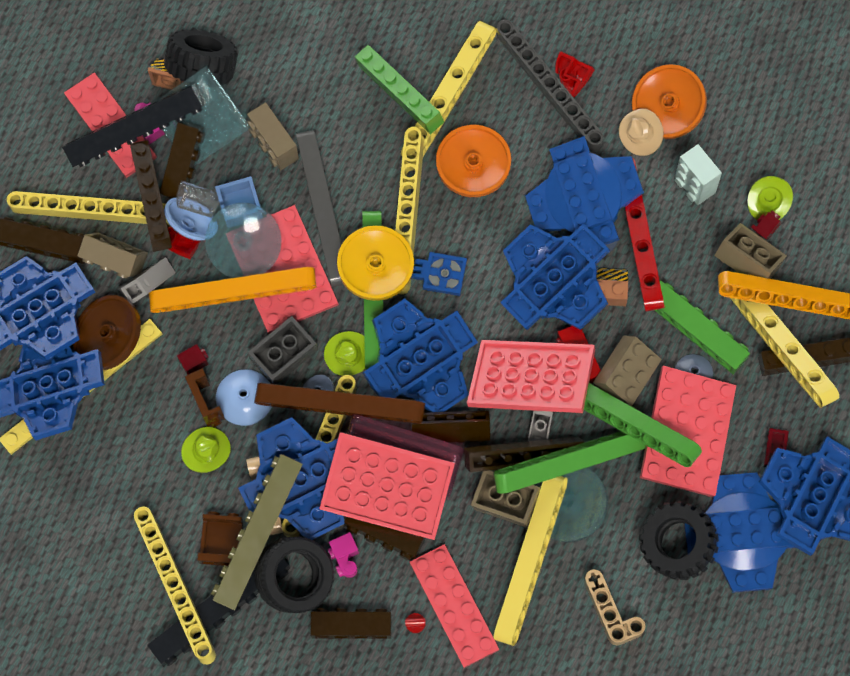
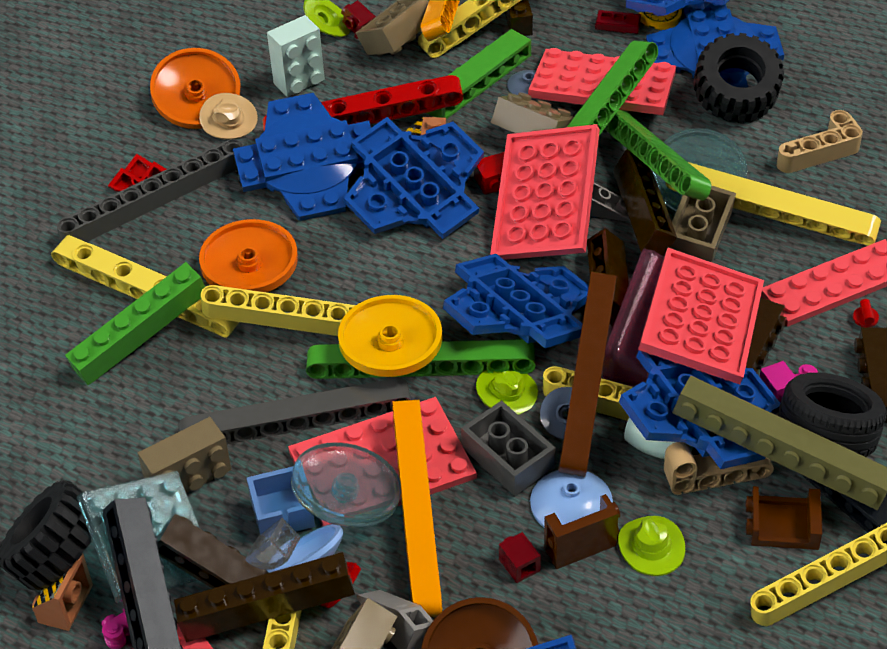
camera: 90 degrees left, 25 degrees down
(441, 273) = (401, 282): blue piece -> none

